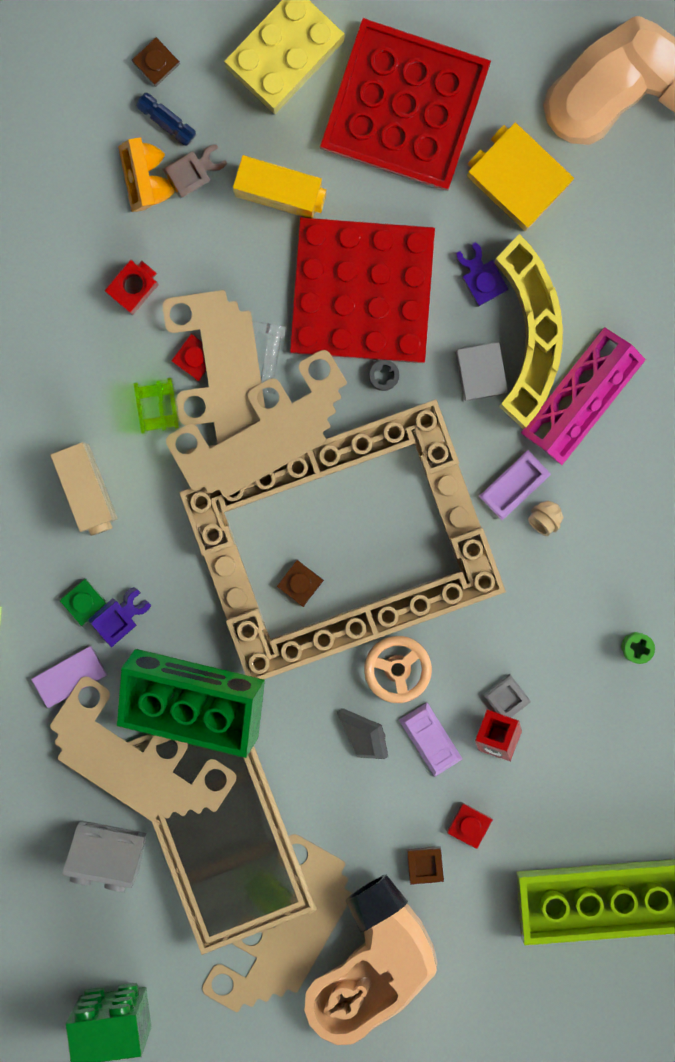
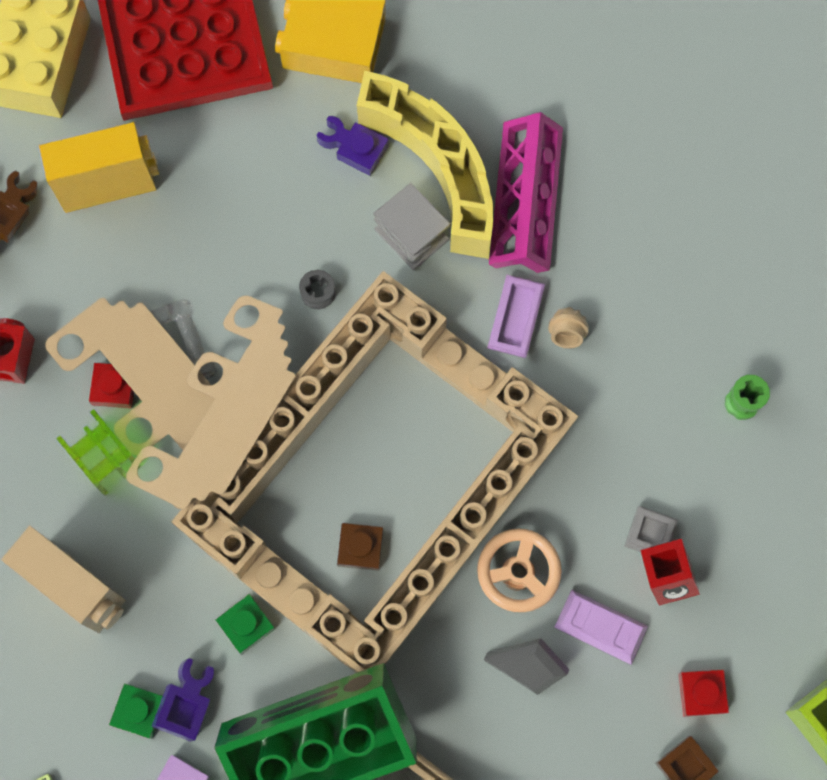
camera: 30 degrees left, 15 degrees down
(189, 588) = (245, 624): none -> green plate
(362, 290) = (245, 223): red plate -> none

